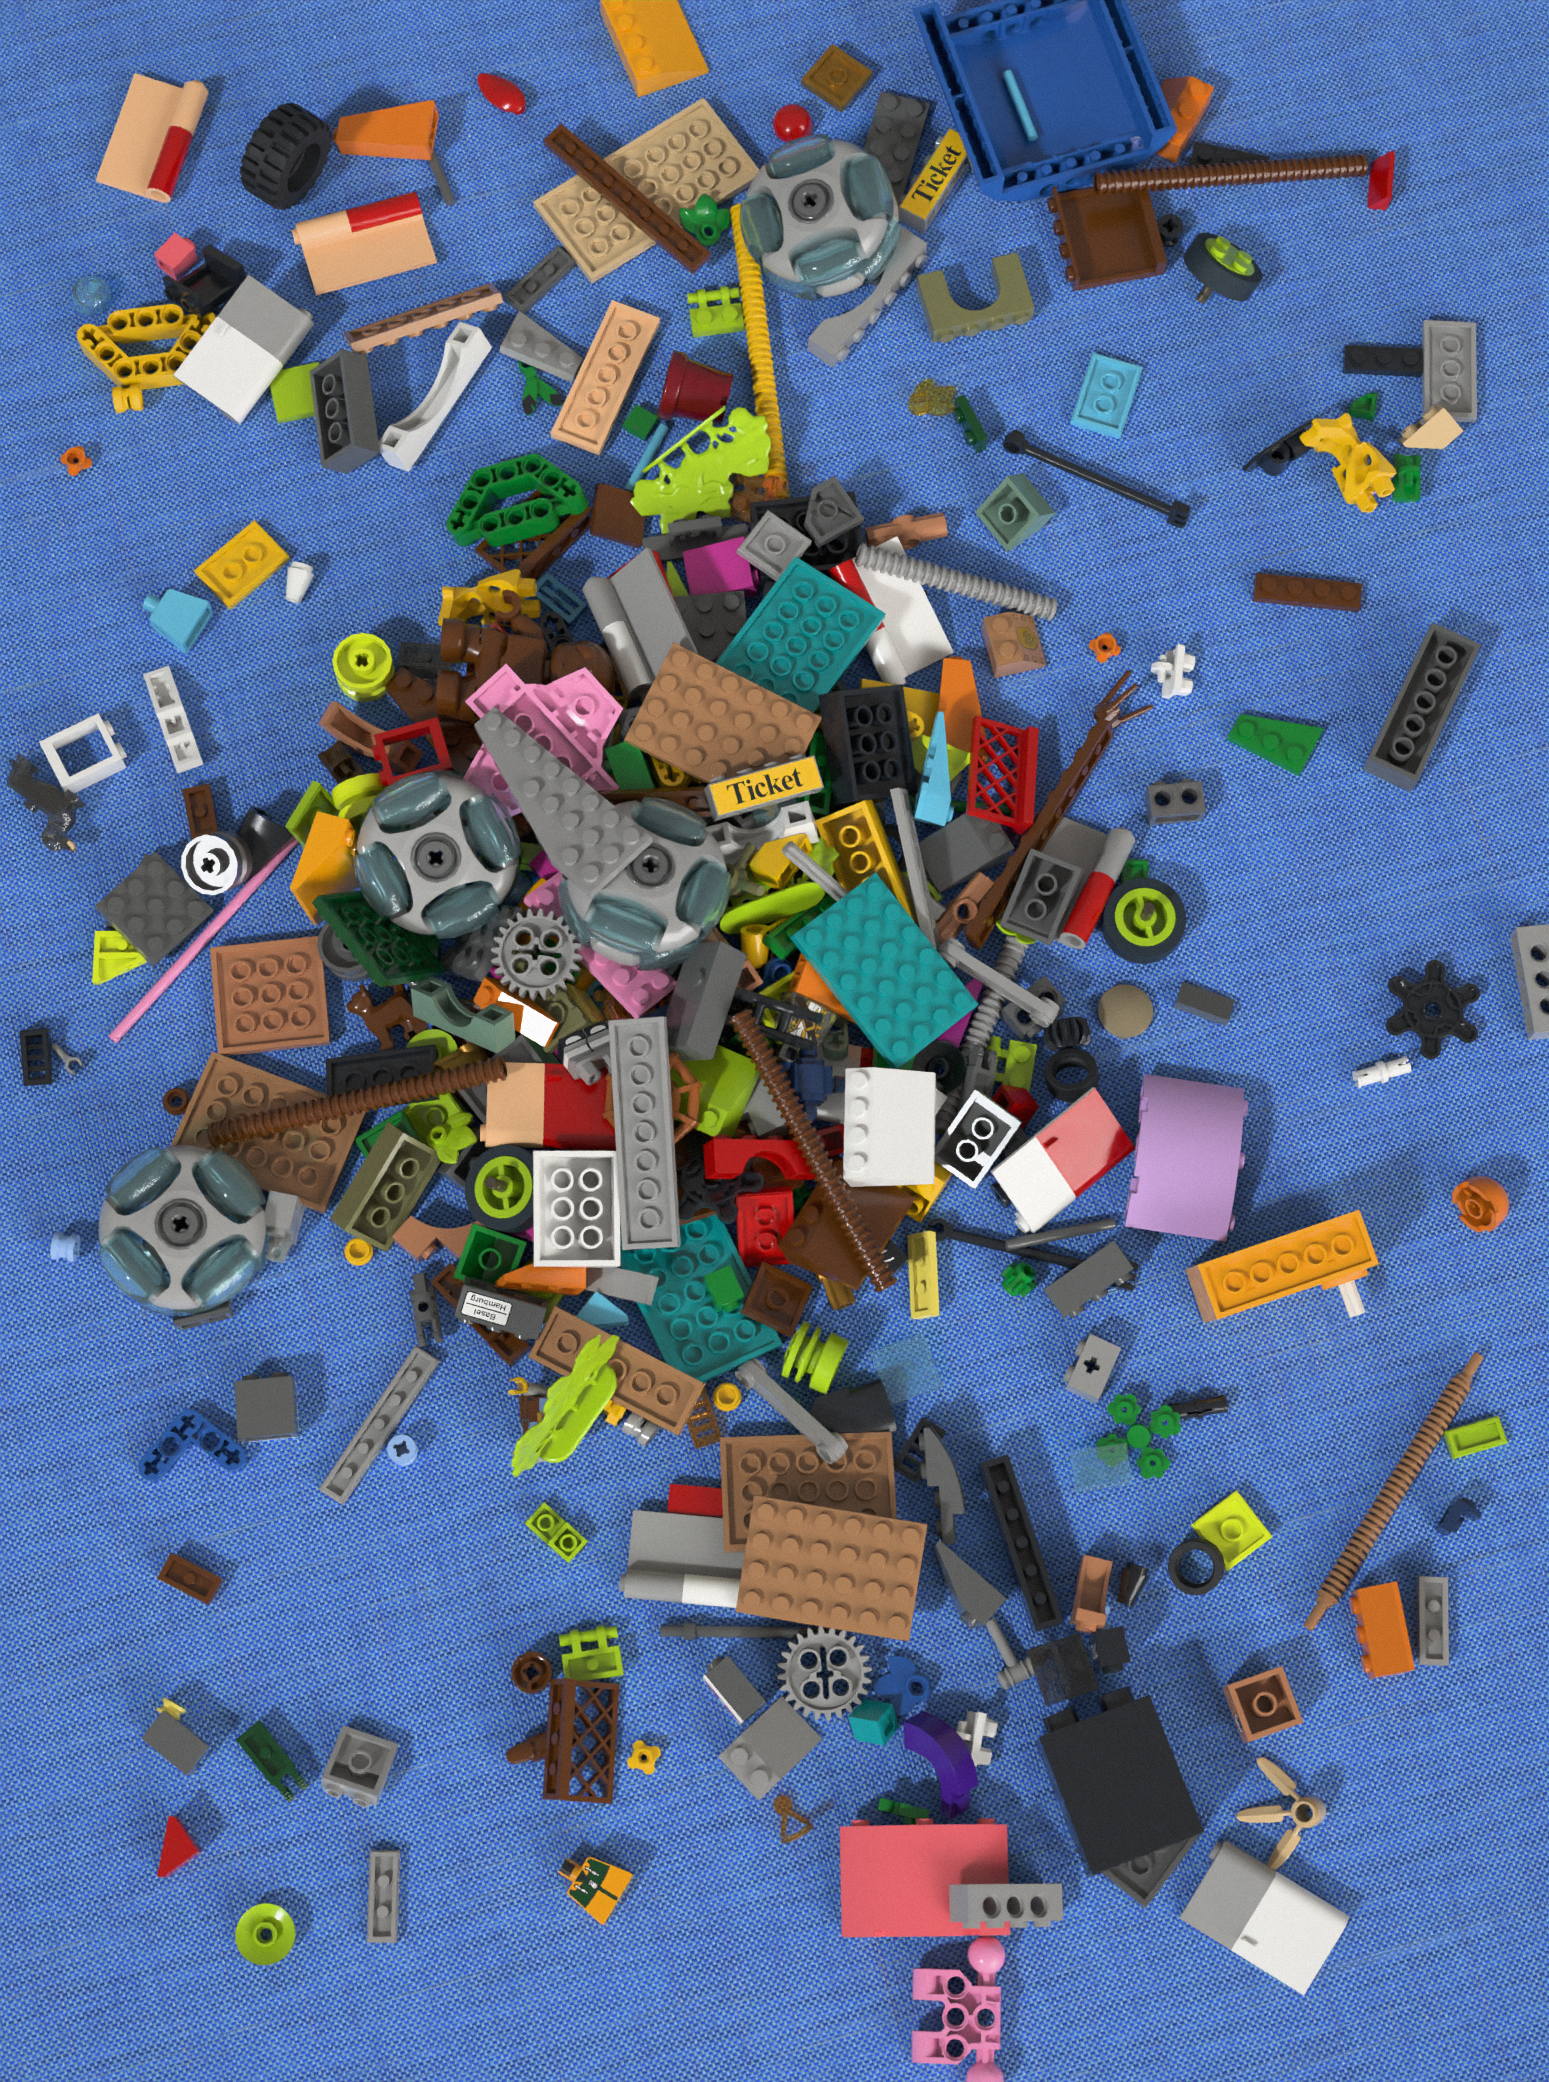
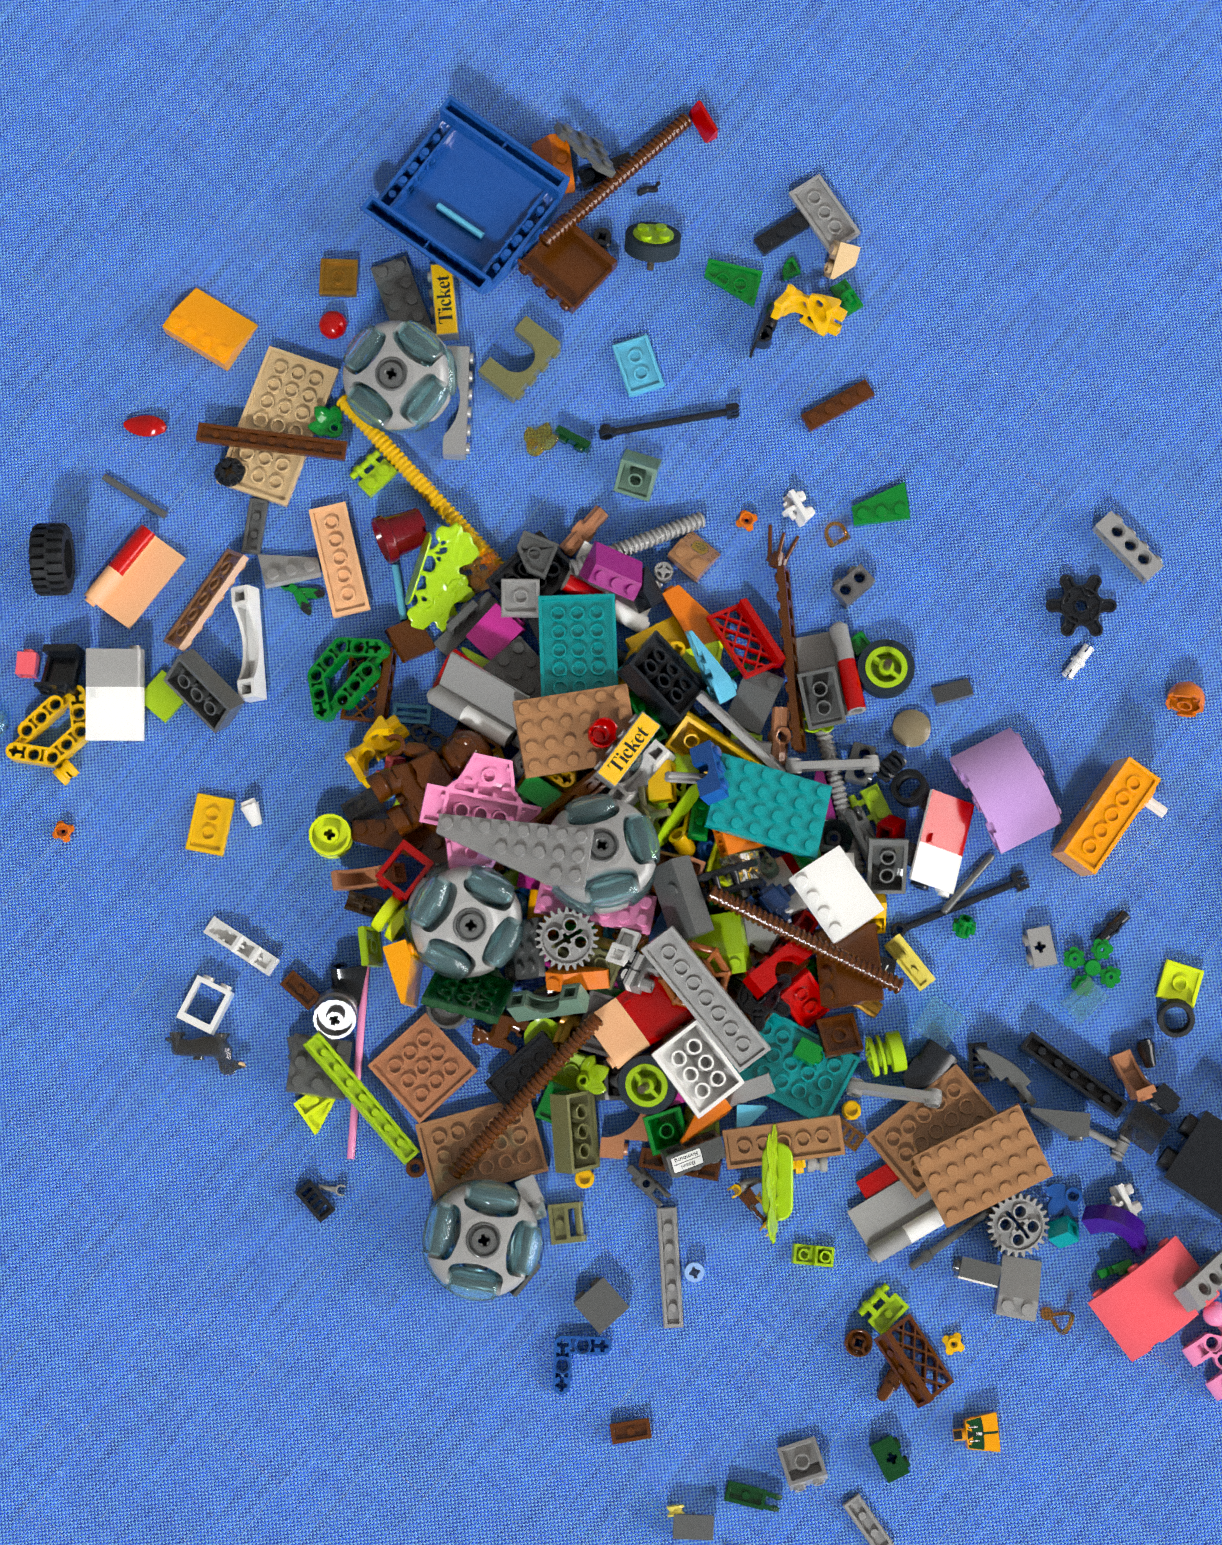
camera: 30 degrees left, 5 degrees up
(65, 1246) = (416, 1297): light blue wheel -> none
(173, 977) = (361, 1098): none -> lime tile
(178, 617) = (197, 883): medium azure torso -> none
(291, 1282) = (560, 1223): none -> olive plate
(390, 132) = (99, 497): orange slope -> none
(461, 1819) = (880, 1450): none -> dark green brick
(551, 209) = (231, 479): none -> black gear
(593, 1011) = (624, 947): none -> white slope
(640, 422) = (379, 573): green tile -> none
(749, 747) = (602, 732): none -> red hair
(851, 868) = (714, 785): none -> blue arch
(903, 588) = (613, 571): none -> magenta slope
(926, 641) = (649, 593): none -> black slope
(966, 632) = (663, 568): none -> light grey wheel
(1089, 1280) = (1003, 899): dark grey brick -> none
(1207, 743) = (830, 543): none -> clear orange piece
(1220, 109) = (586, 148): none -> dark grey plate
(1263, 213) = (648, 189): none -> black piece
(1290, 375) = (735, 279): none -> green wing
(1421, 707) = (951, 431): dark grey brick -> none

